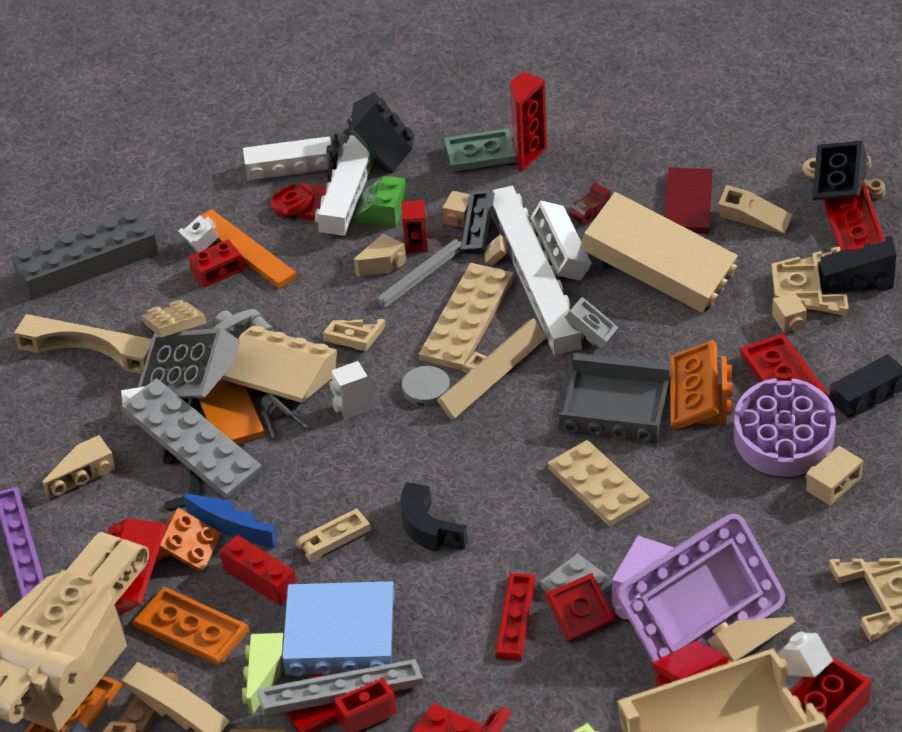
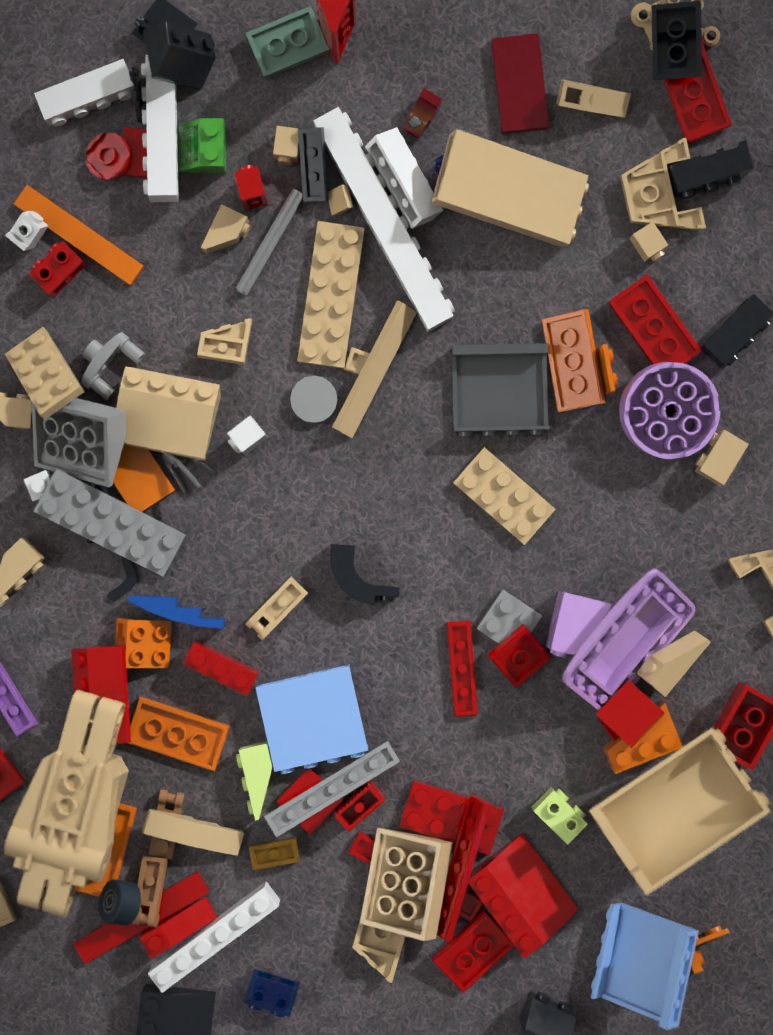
camera: 15 degrees left, 45 degrees up
(591, 323) = (461, 300): light grey plate -> none
(805, 655) = (720, 694): white slope -> none

